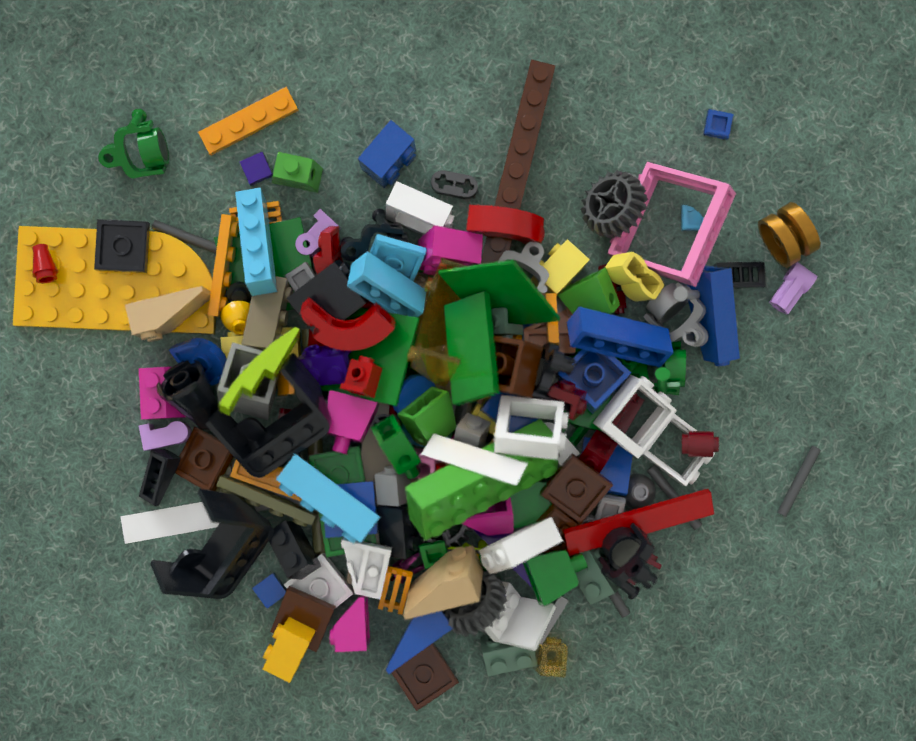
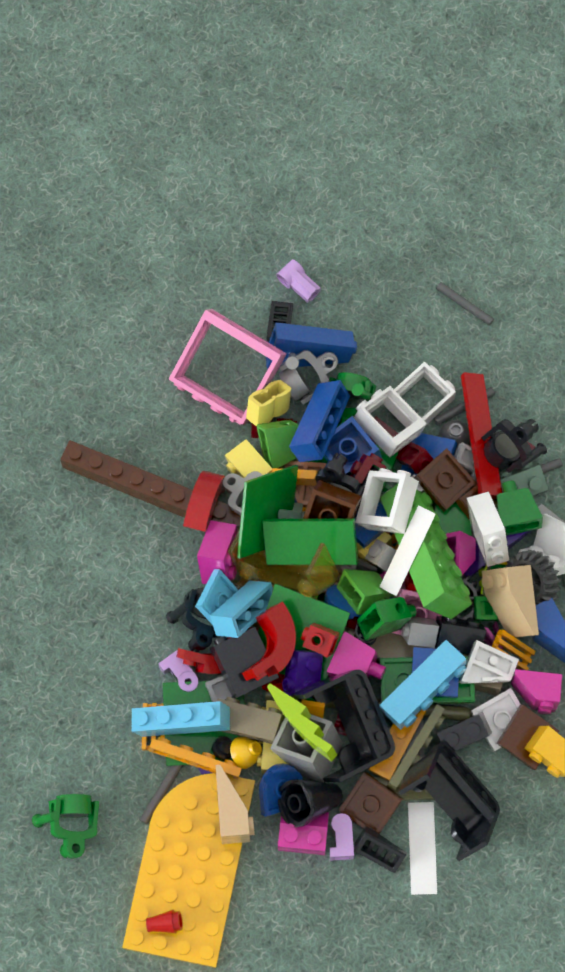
camera: 80 degrees left, 15 degrees down
(122, 246) = (160, 848): black tile -> none
(248, 121) = (63, 720): light orange plate -> none
(256, 168) = (108, 719): dark purple tile -> none
(270, 590) = (498, 765): blue tile -> none
(296, 172) = (119, 682): bright green torso -> none
(388, 154) = (121, 595): blue brick -> none
(417, 210) = (177, 576): white window -> none
(455, 178) = (152, 544): dark grey beam -> none
(614, 204) = (189, 422): dark grey gear -> none
(690, 219) = (224, 353): medium azure tile -> none
(700, 444) = (421, 373): dark red brick -> none
(718, 124) = (144, 318): blue tile -> none
(789, 234) = (253, 274): pearl gold wheel -> none

